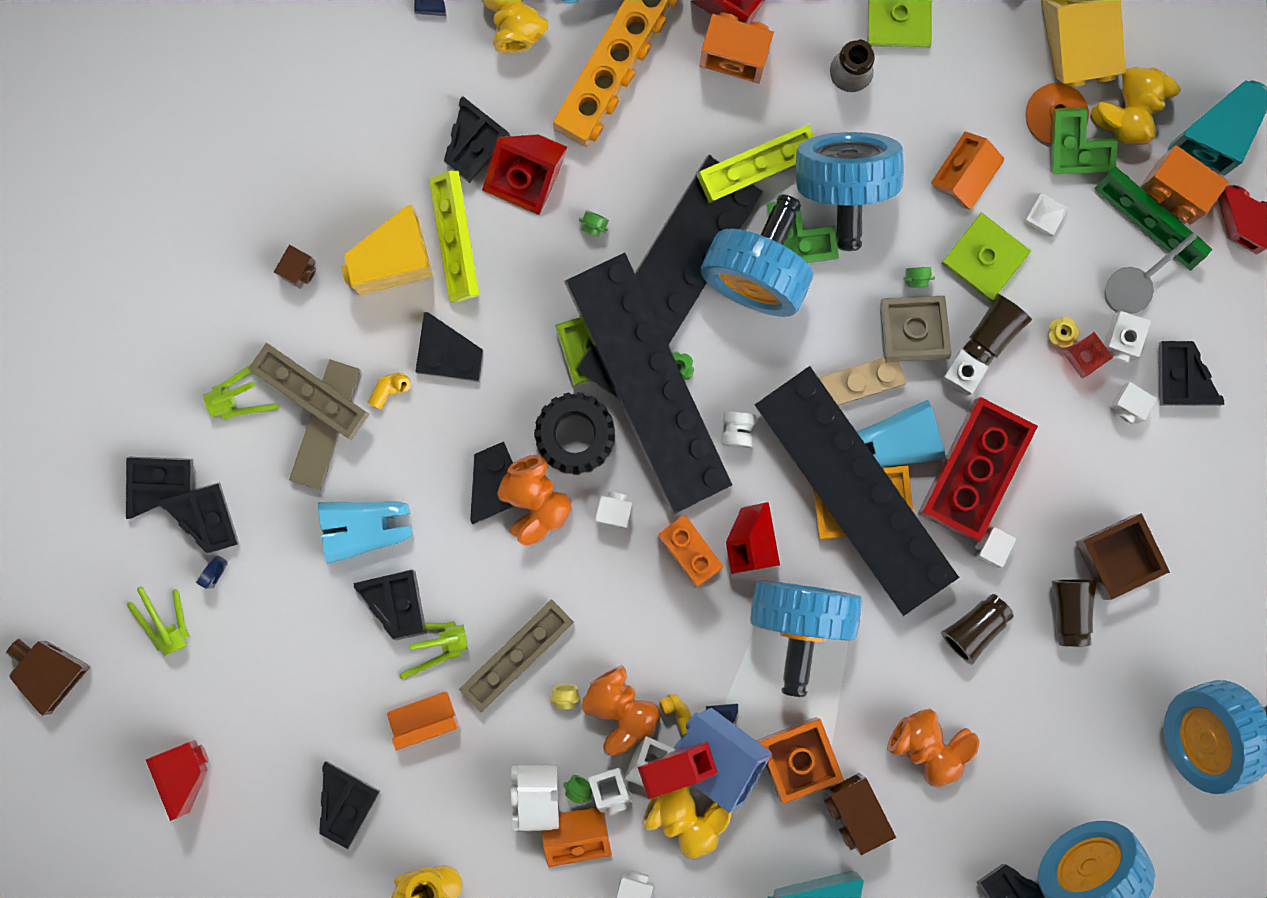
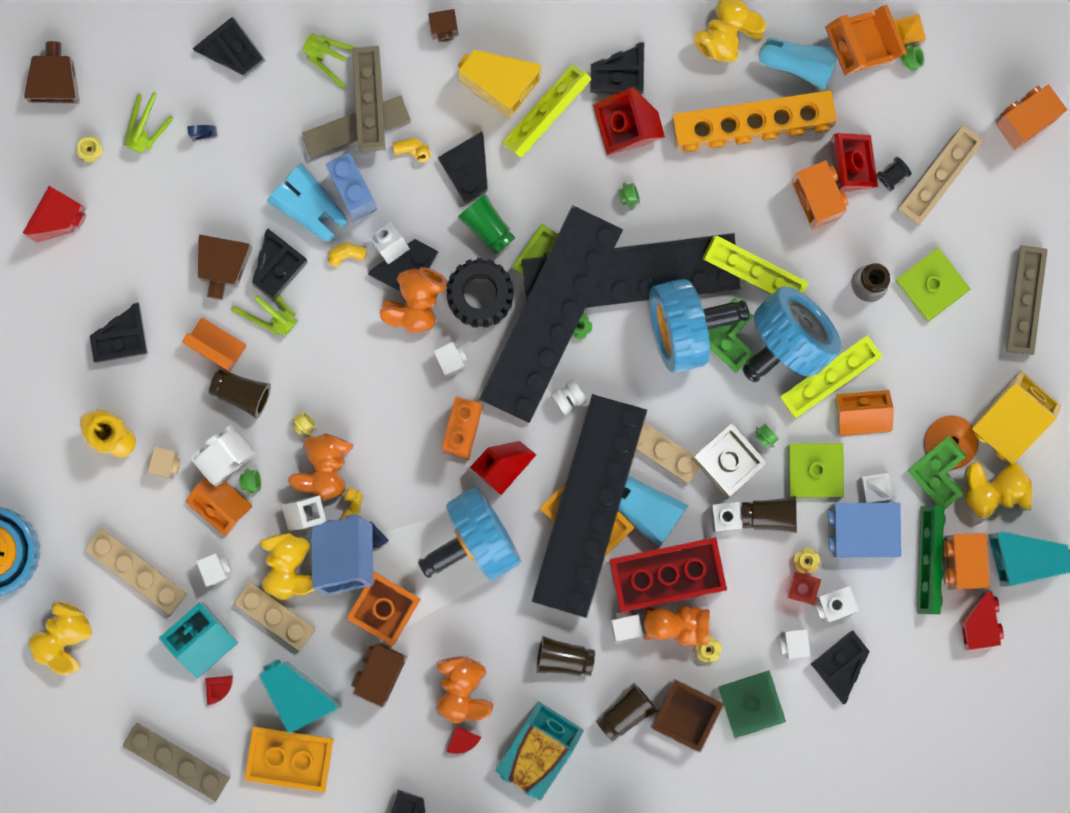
camera: 50 degrees right, 0 degrees up
(134, 696) = (86, 142): none -> light yellow plate
(203, 516) = (233, 97): black wing -> none
(351, 653) = (221, 263): none -> reddish brown torso
(378, 473) = (351, 186): none -> medium blue brick
(432, 528) = (345, 250): none -> yellow arm
(459, 480) = (389, 242): none -> white plate
(487, 732) = (240, 392): none -> dark brown plant
(496, 858) = (164, 463): none -> tan plate
(516, 375) = (487, 224): none -> green plant
(516, 655) = (305, 371): dark tan plate -> none
(610, 791) = (265, 501): white brick -> none
(677, 770) = (312, 530): red slope -> none
(723, 868) = (274, 616): none -> tan plate
(911, 201) = (832, 377): none -> neon yellow plate
(980, 784) = (462, 741): none -> red tile
(1040, 489) = (687, 625): none -> orange animal
(1047, 720) = (539, 751): none -> slope
(1066, 491) = (711, 656): none -> light yellow plate
(1078, 255) = (865, 530): none -> medium blue brick
(1132, 288) = (872, 583): light grey piece -> none
(1156, 488) = (751, 704): none -> clear green plate

